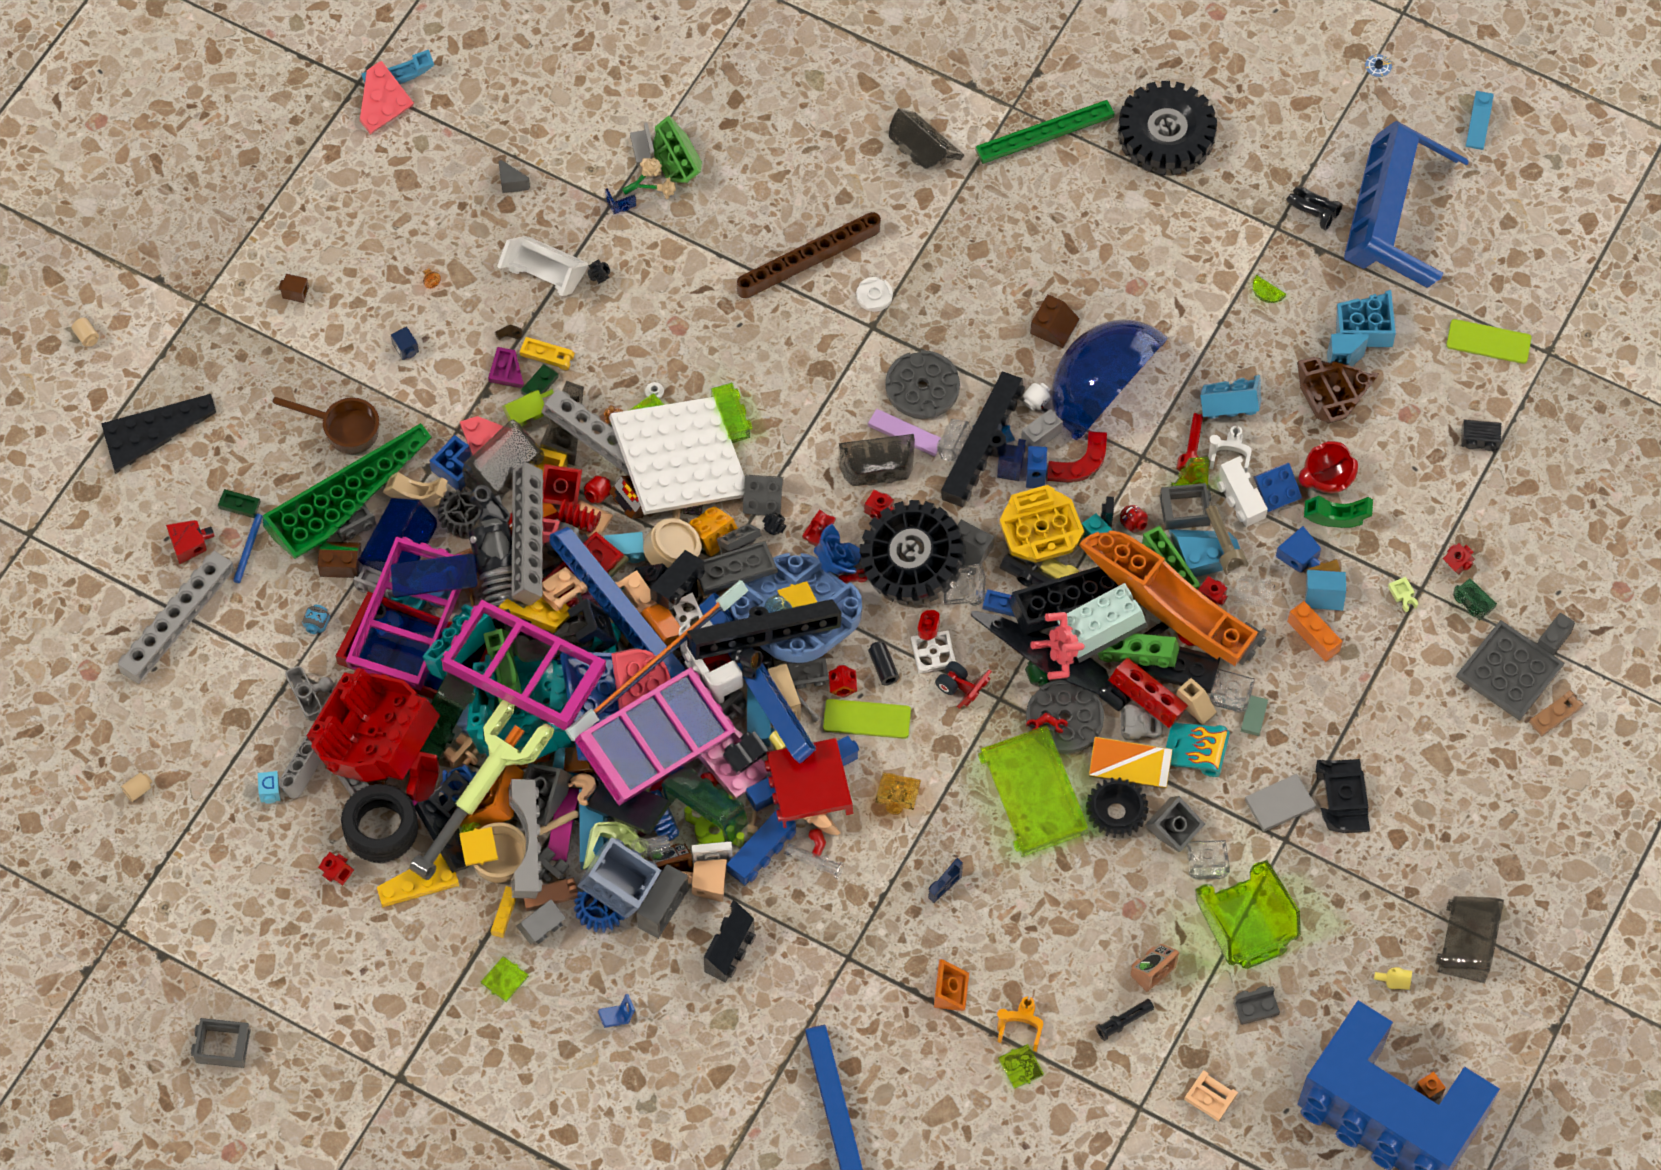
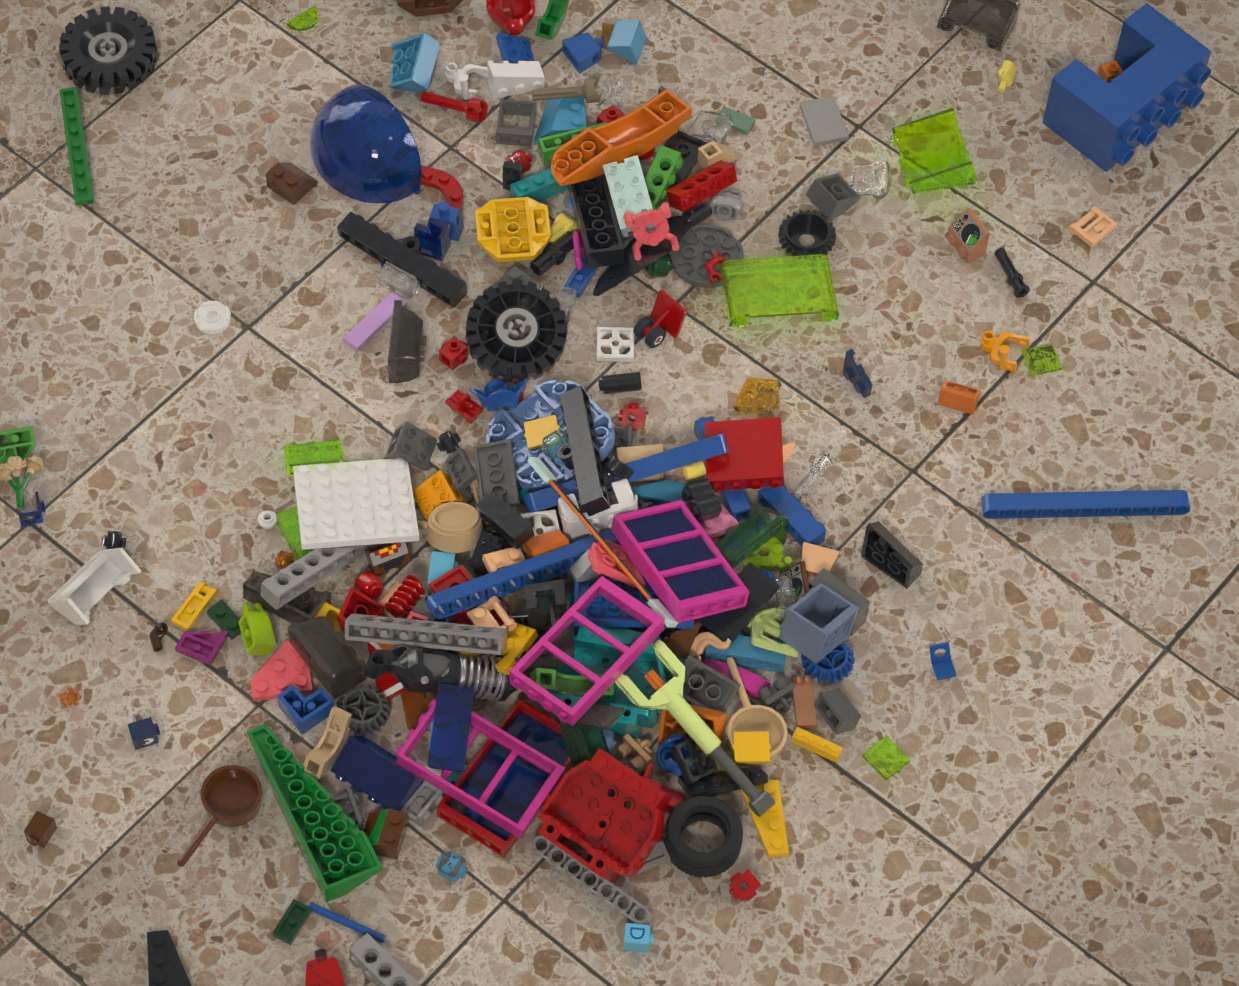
camera: 80 degrees left, 5 degrees down
(310, 701) = (544, 881): light grey piece -> none
(476, 639) = (519, 719): teal wedge -> none
(523, 801) = (794, 706): light grey arch -> none
(712, 851) = (797, 545): white tile -> none
(800, 257) = (150, 351): reddish brown beam -> none
(819, 840) = (794, 469): red arm -> none
(867, 718) = (672, 410): lime piece -> none
(921, 141) = (59, 239): clear smoke windscreen -> none
(926, 401) = (328, 313): dark grey plate -> none
(928, 624) = (593, 338): red plate -> none
(1036, 396) = (368, 208): white head -> none
(1042, 429) = (406, 211): light grey brick -> none
(1130, 761) = (764, 216): tile -> none
(1195, 472) = (489, 107): clear neon green wing -> none
(1198, 747) = (760, 166): teal door -> none
(1256, 1005) = (1013, 178): dark grey bracket -> none
(1314, 631) = (666, 57): orange brick -> none
(1345, 795) = (826, 72): black piece -> none

